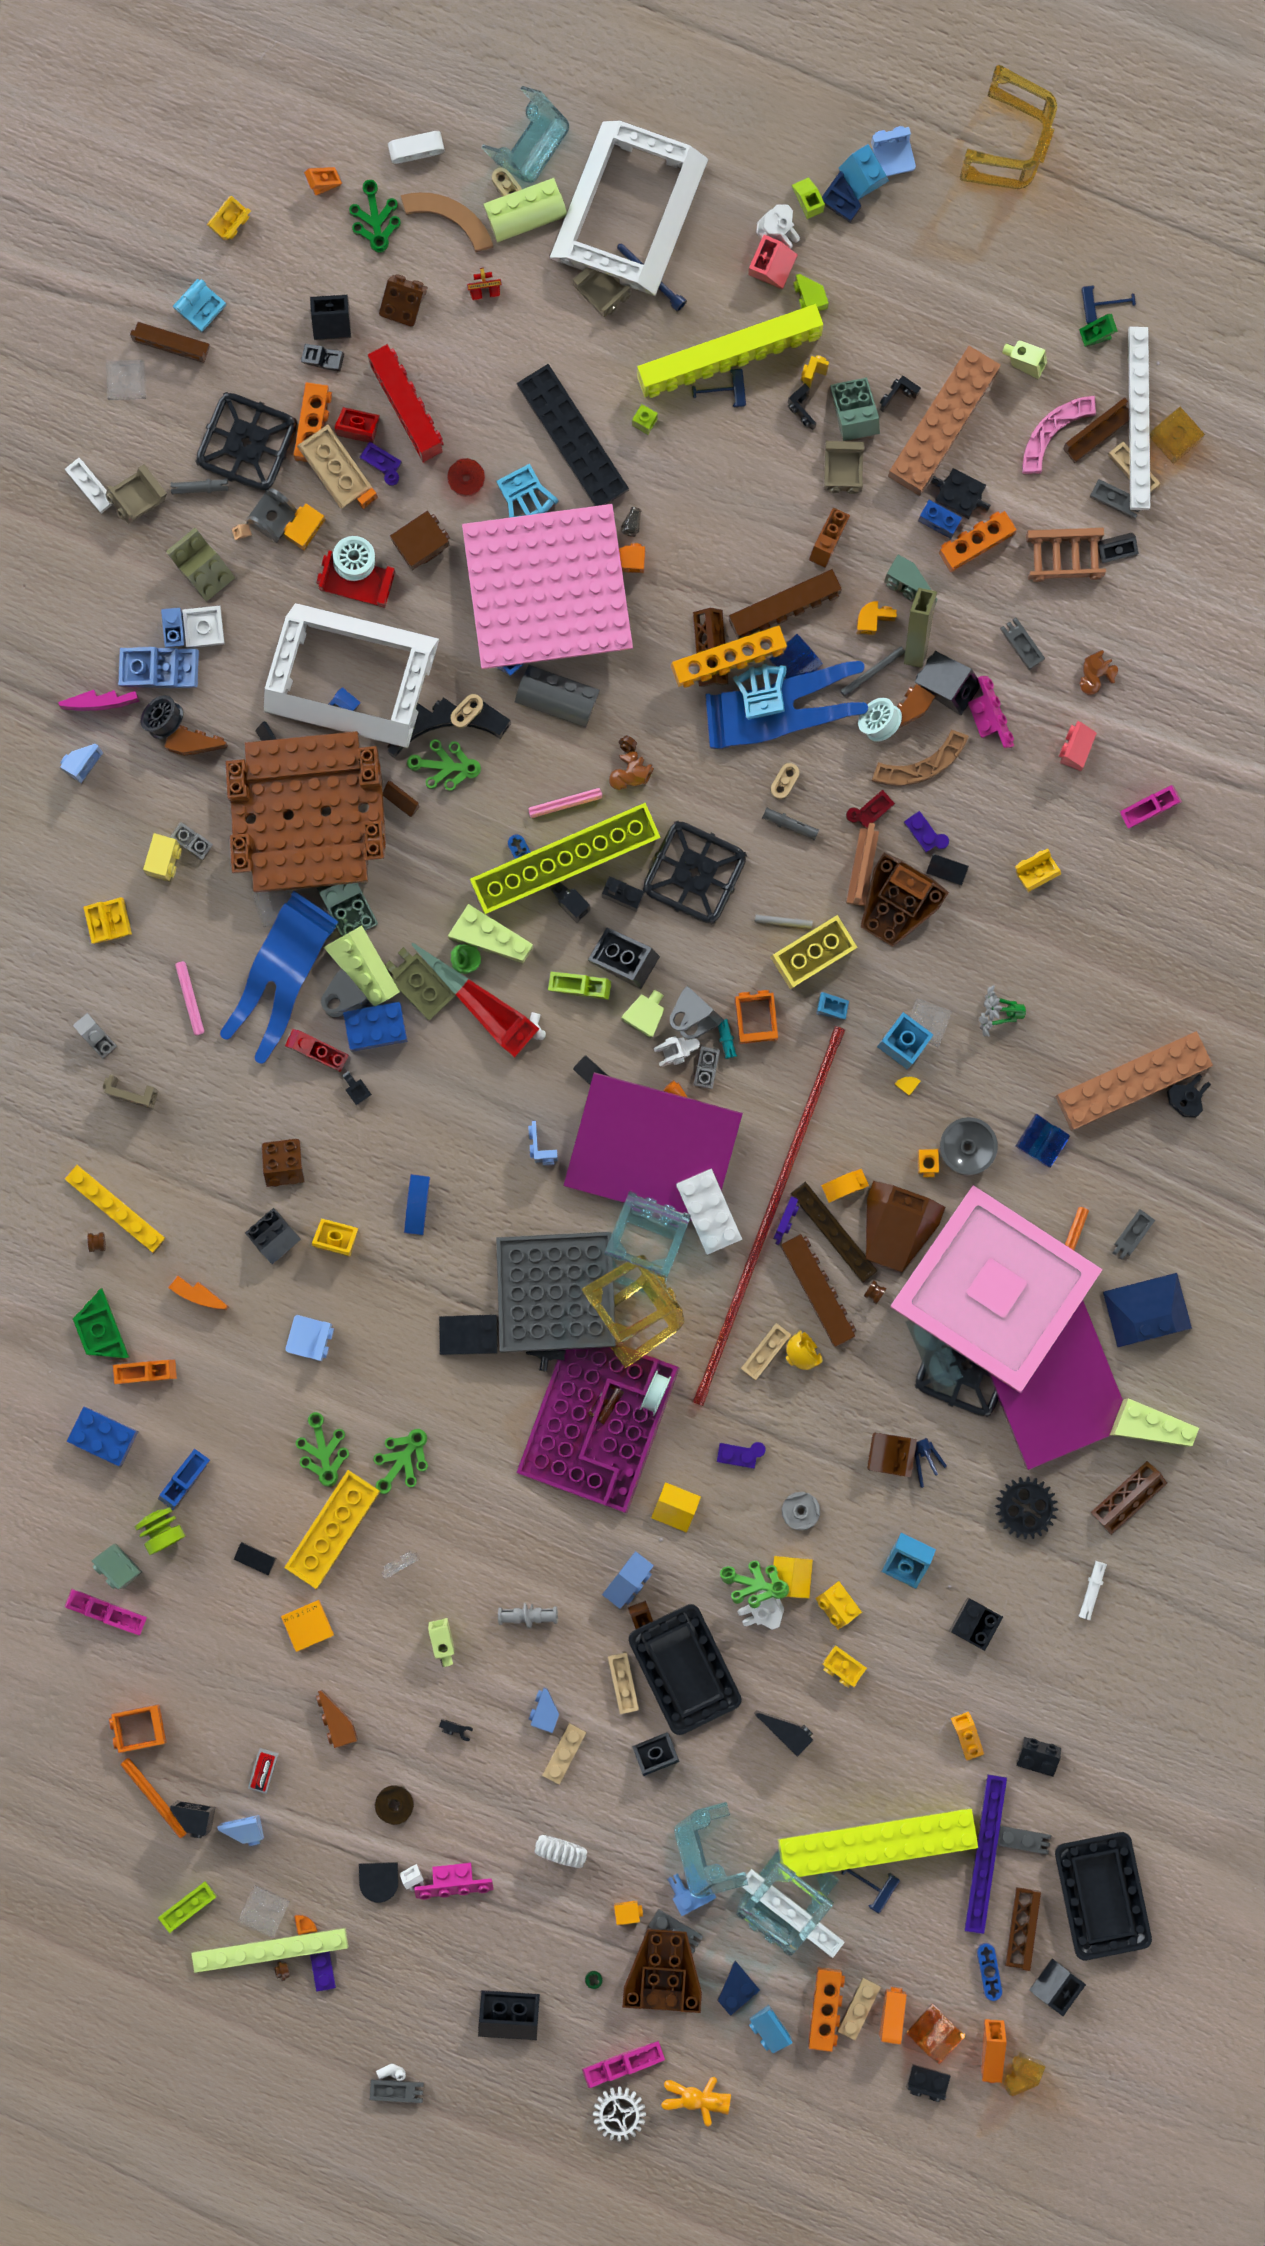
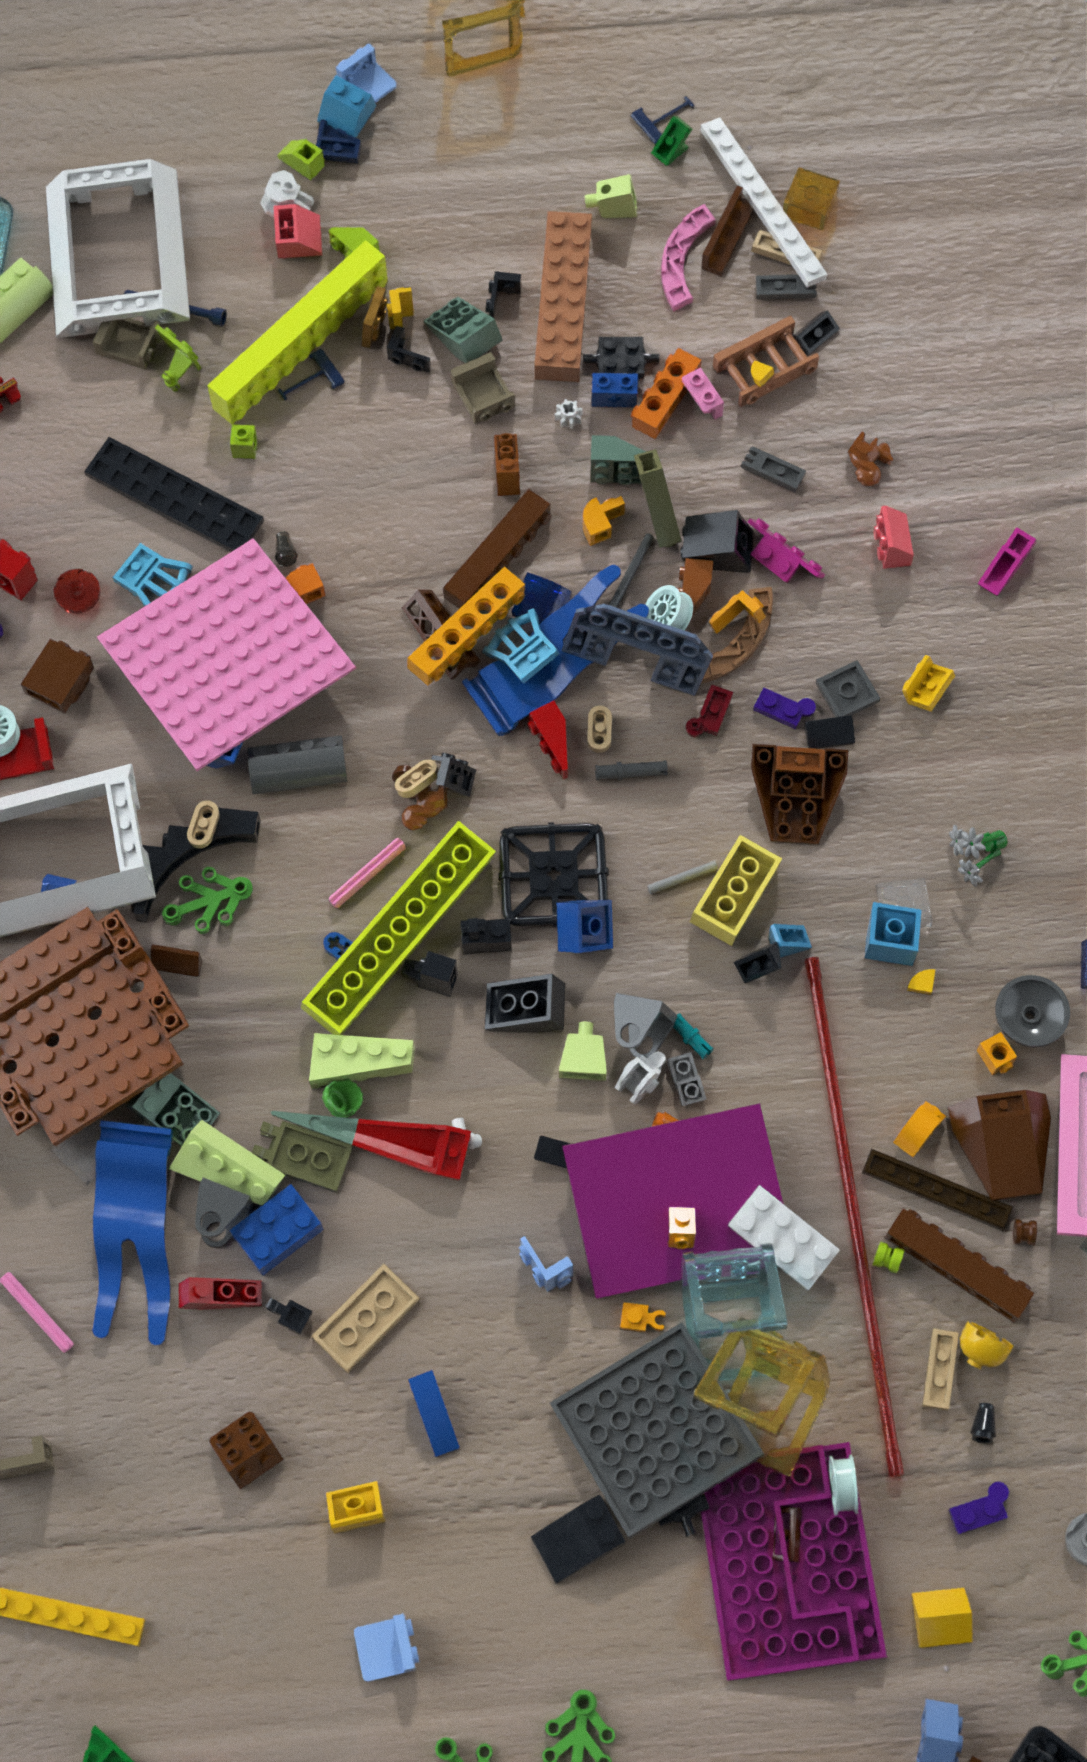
camera: 25 degrees left, 15 degrees down
(96, 1242) = (60, 1669): reddish brown wheel -> none
(197, 1294) = (219, 1669): orange slope -> none
(272, 1236) = (277, 1545): black slope -> none
(405, 1117) = (365, 1318): none -> tan tile
(579, 985) = (491, 1061): lime slope -> none
(585, 1211) = (636, 1317): none -> light orange plate
(632, 328) = (182, 359): none -> lime plate
(634, 753) = (416, 778): none -> tan plate
(644, 1169) = (681, 1228): none -> bracket
(662, 764) = (454, 774): none -> black bracket
(694, 923) = (584, 925): none -> blue slope
(750, 763) = (551, 730): none -> red slope
(760, 1036) = (724, 1015): orange window -> none
(773, 1260) = (888, 1257): none -> lime wheel
(774, 1401) = (984, 1425): none -> black cone
(785, 1225) = (877, 1209): dark purple hinge -> none
(788, 372) = (375, 315): none -> pearl gold plate
(800, 1012) = (759, 962): none -> black slope
(862, 866) = (735, 772): nougat fence -> none
(865, 760) = (681, 653): none -> sand blue slope
(897, 515) = (568, 413): none -> white gear
(931, 739) = (733, 608): none -> light orange bracket
(978, 844) = (848, 690): none -> dark grey plate
(1002, 557) = (704, 393): none -> bright pink bracket
(1054, 564) = (761, 372): none -> yellow tile

